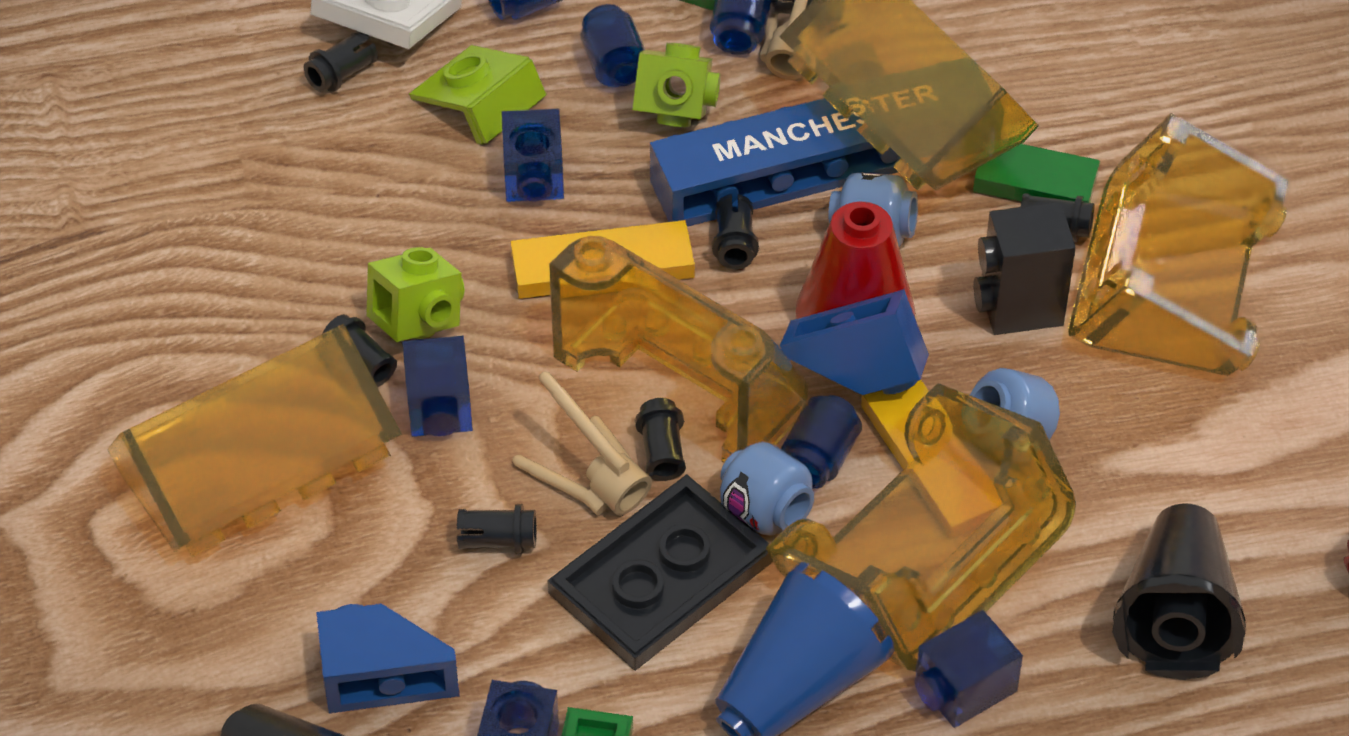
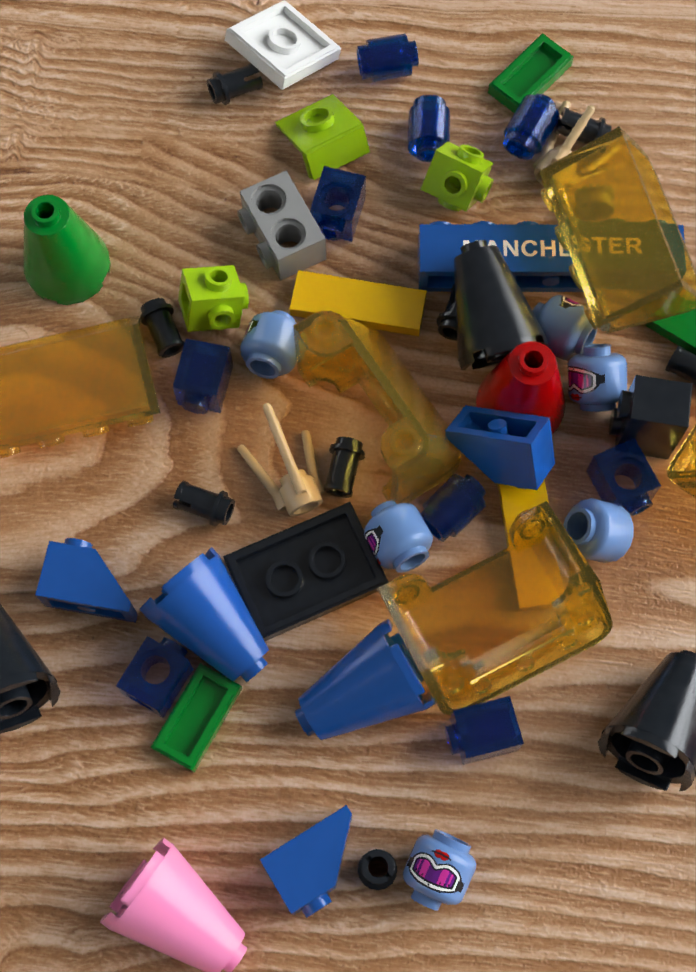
camera: 20 degrees right, 20 degrees up
(192, 293) = (62, 252): none -> green cone
(471, 196) = (288, 223): none -> light grey brick
(513, 326) = (269, 344): none -> medium blue head
(563, 641) = (210, 618): none -> blue cone
(776, 202) = (489, 308): none -> black cone
(940, 250) = (597, 378): none -> medium blue head
(1019, 341) = (629, 461): none -> clear blue brick

